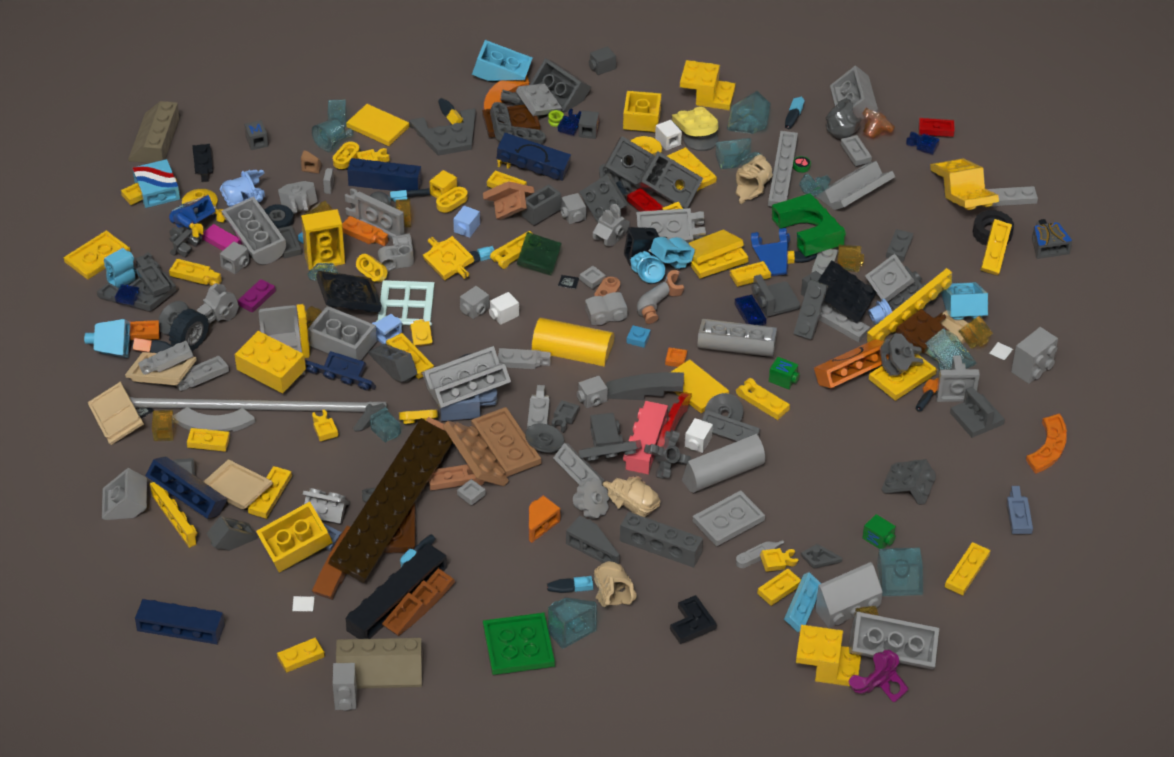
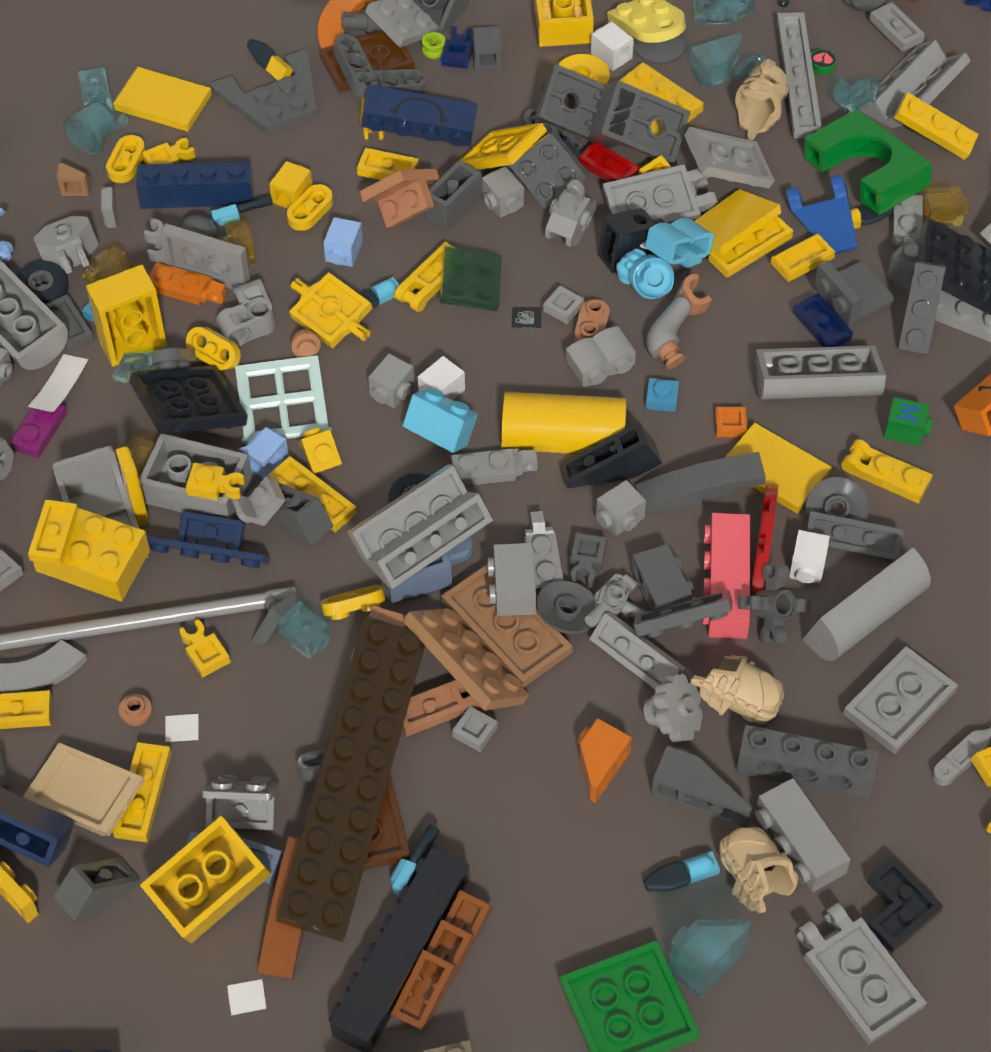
camera: 10 degrees left, 10 degrees up
(250, 344) = (53, 532): none -> yellow plate
(275, 273) = (59, 383): none -> white sticker
(276, 451) = (137, 717): none -> nougat plate
(301, 465) = (182, 727): none -> white sticker
(345, 267) = (173, 358): none -> dark grey plate
(348, 335) = (210, 480): none -> yellow plate
(377, 354) = (261, 503): none -> light grey bracket
(428, 274) = (305, 343): none -> nougat plate
(497, 326) = (440, 419): none -> medium azure brick
(515, 416) = (514, 579): none -> light grey brick
(574, 438) = (613, 598): none -> light grey piece
(580, 181) = (503, 146): none -> yellow tile
(602, 363) = (613, 459): none -> black slope
(646, 576) = (802, 835): none -> light grey brick
(658, 650) = (860, 974): none -> light grey tile
(720, 209) = (729, 158): none -> light grey plate
(859, 210) = (936, 126): none -> yellow plate

